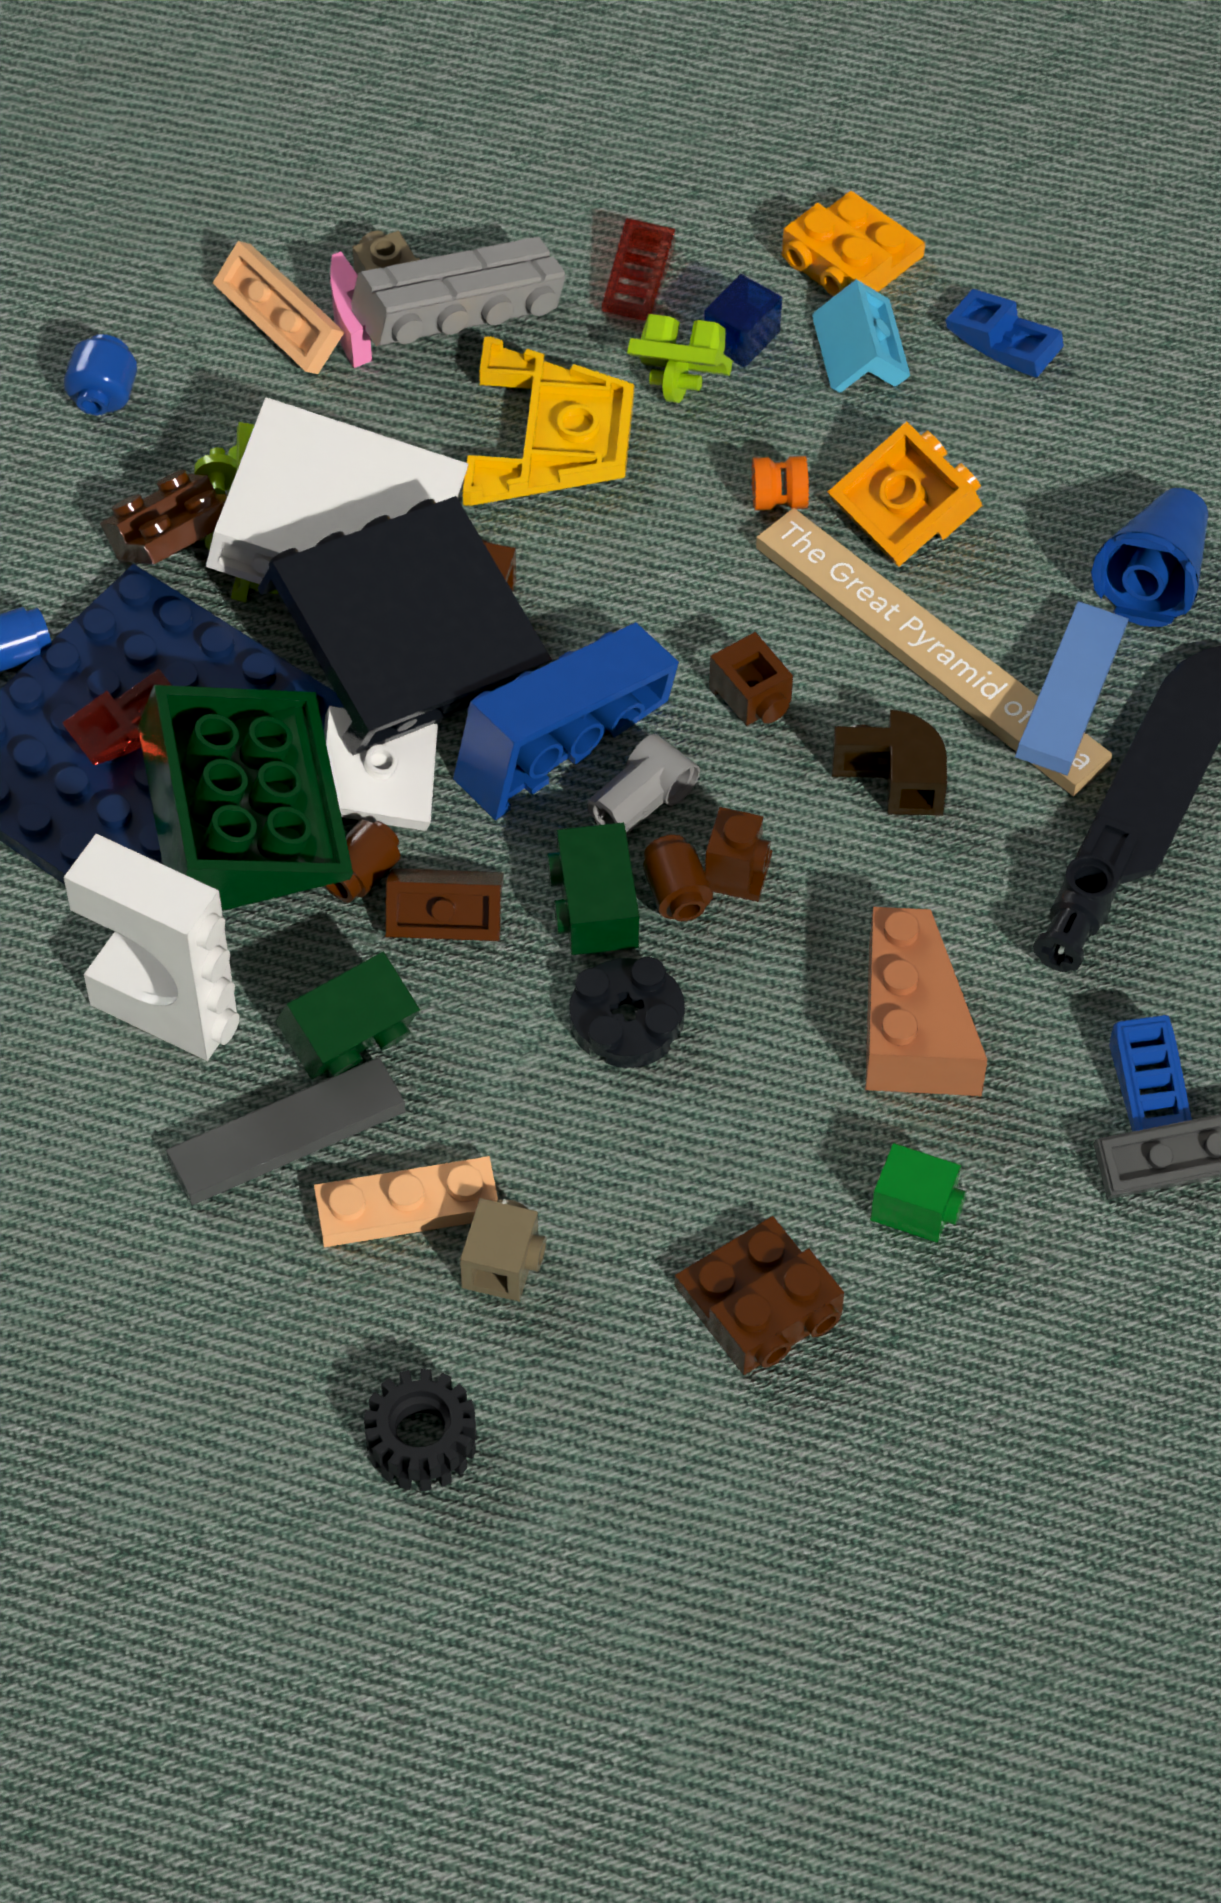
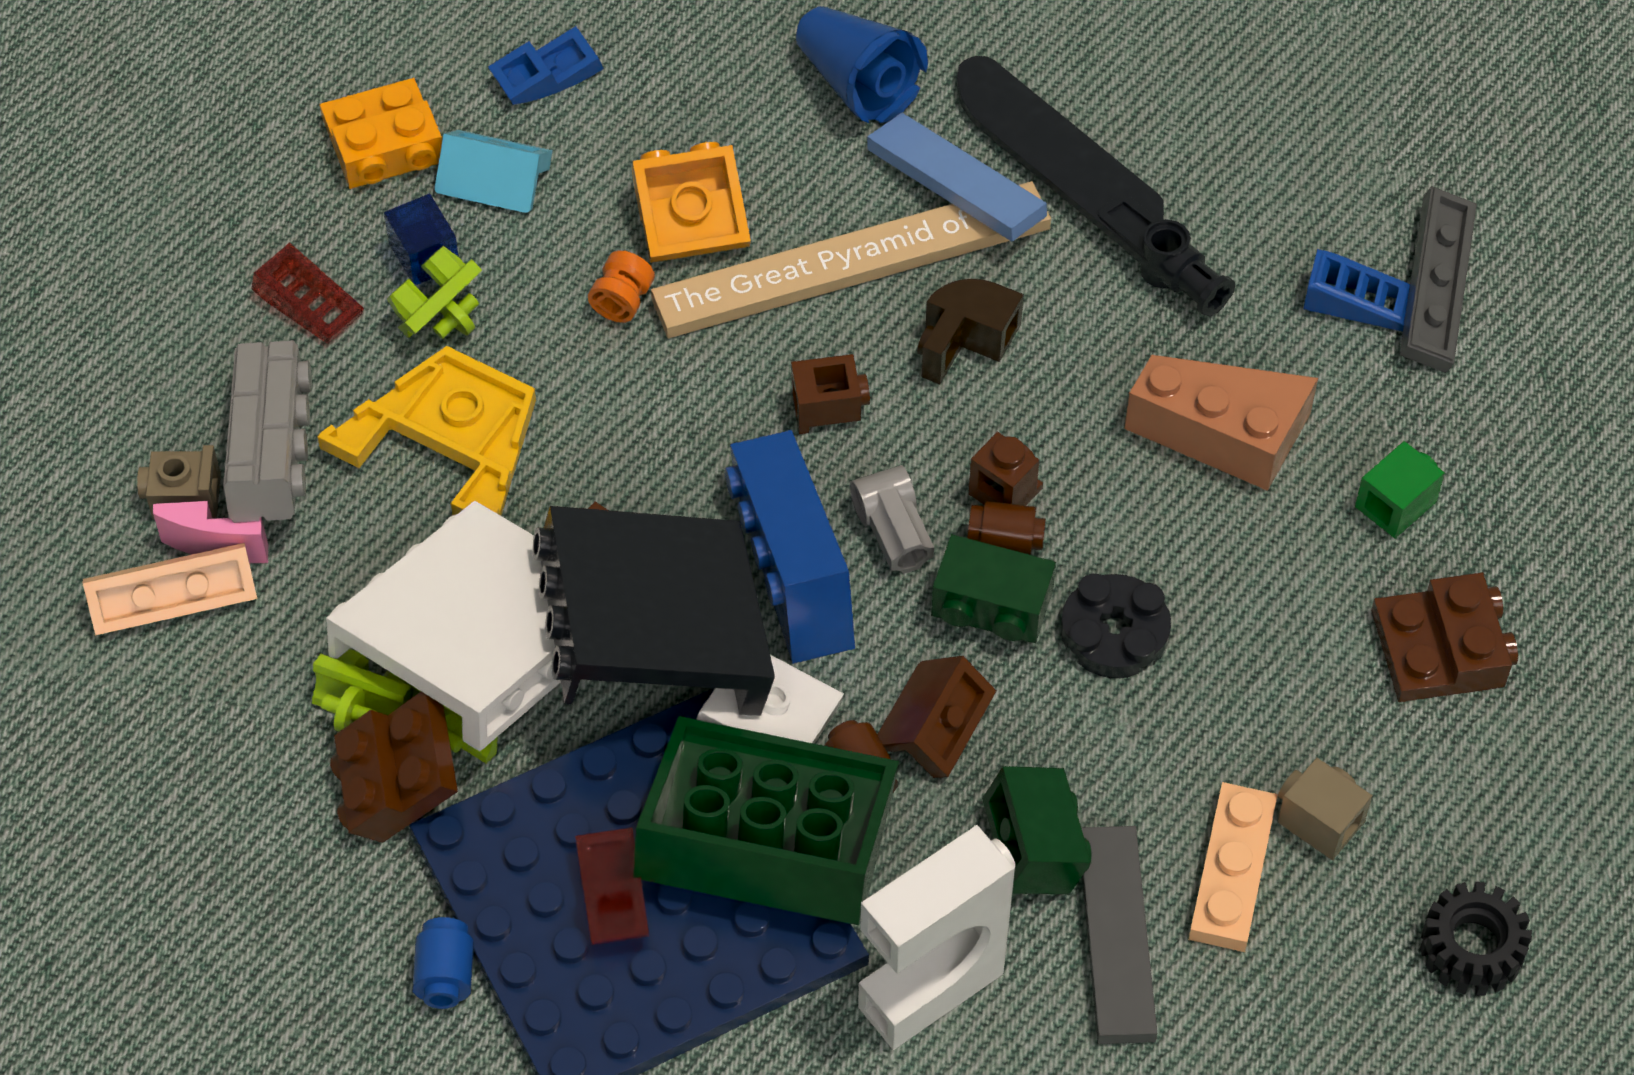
camera: 65 degrees left, 0 degrees up
(100, 373) = (163, 766): blue head -> none

